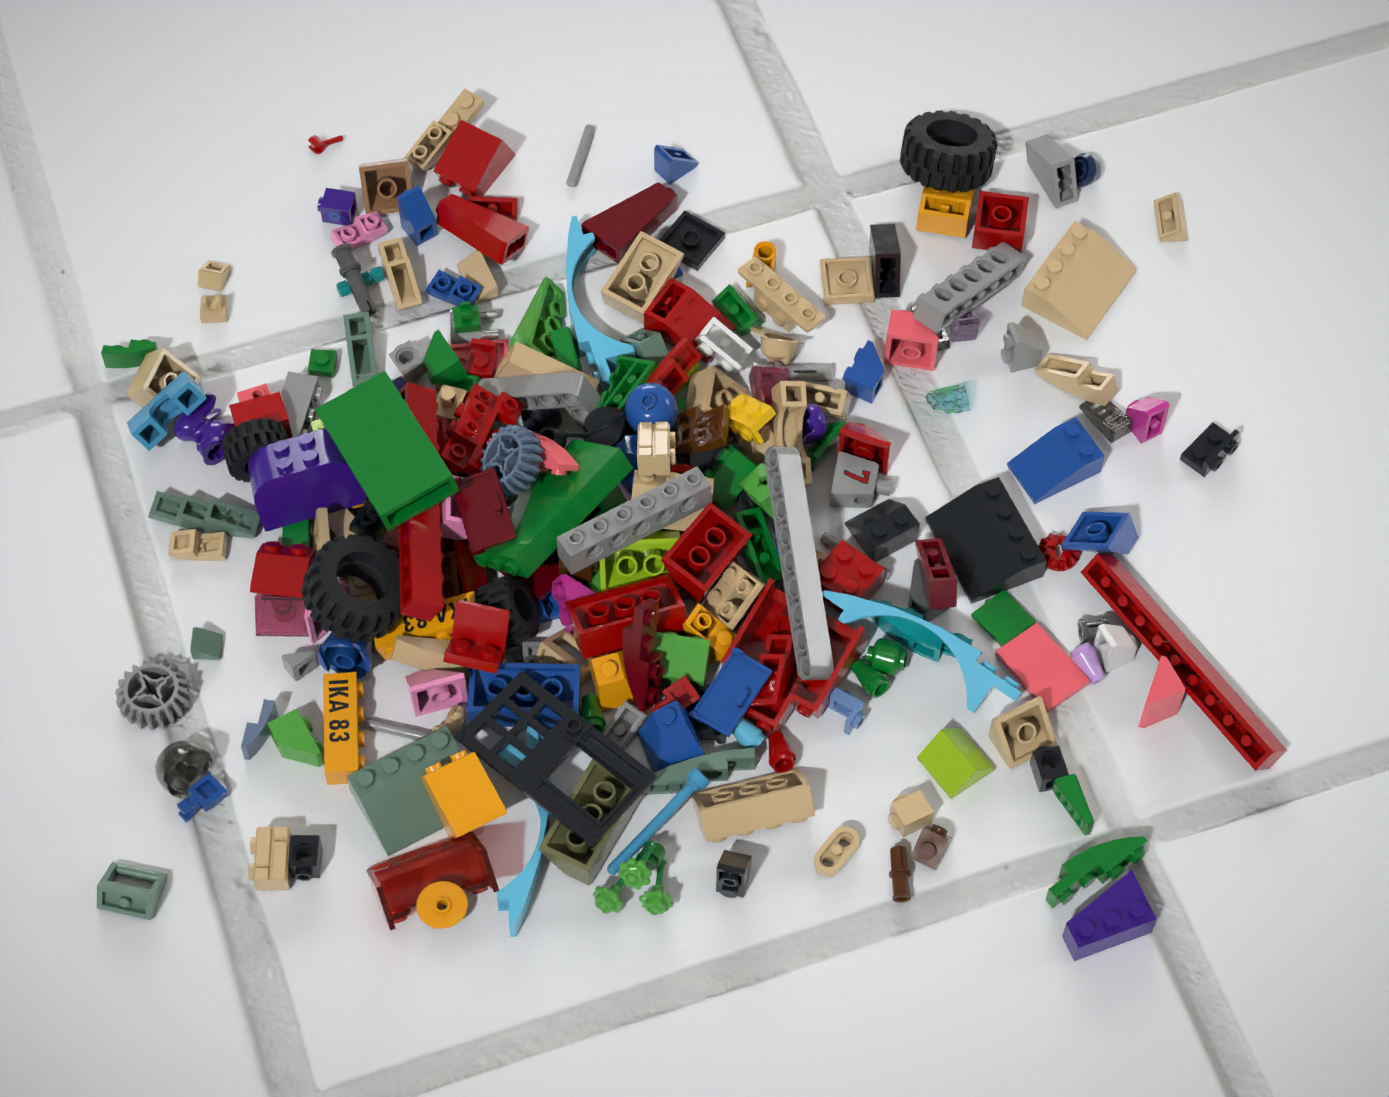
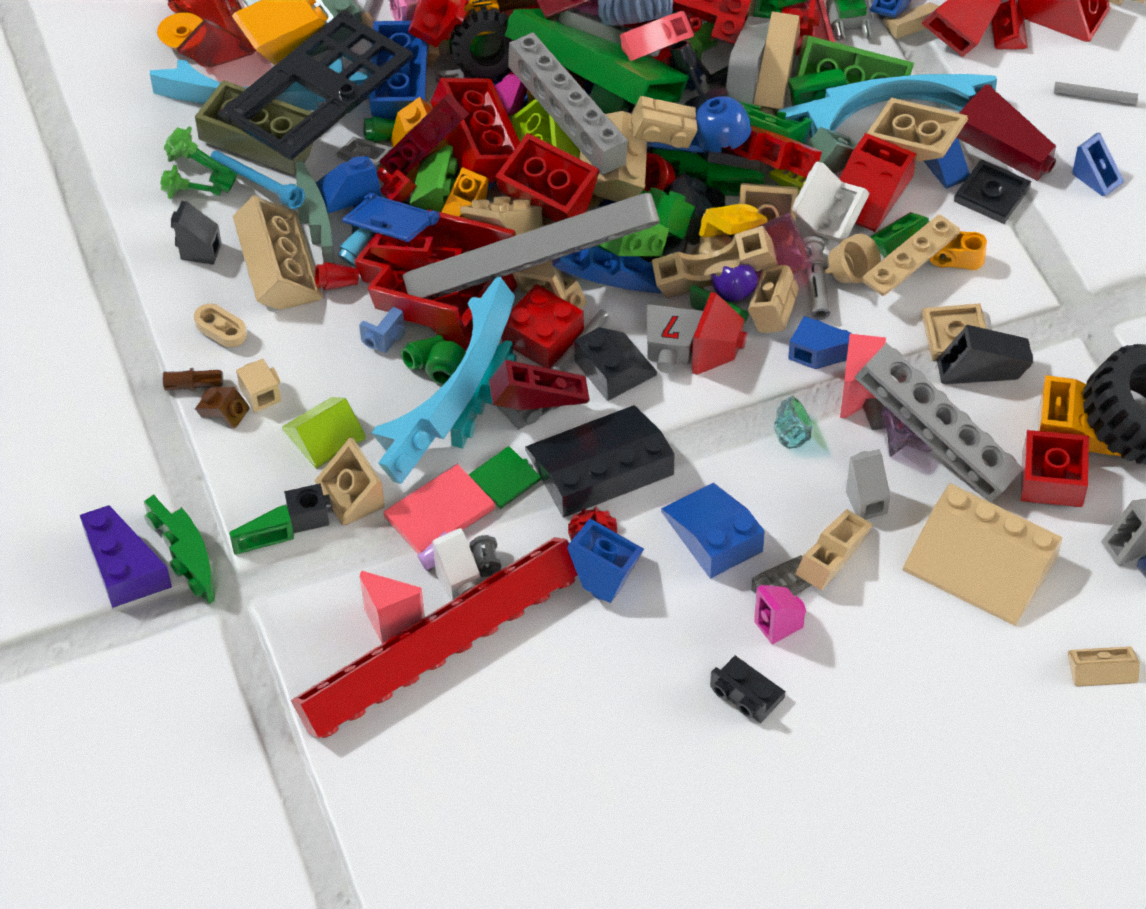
camera: 90 degrees right, 5 degrees down
(701, 430) = (710, 180): reddish brown slope -> none

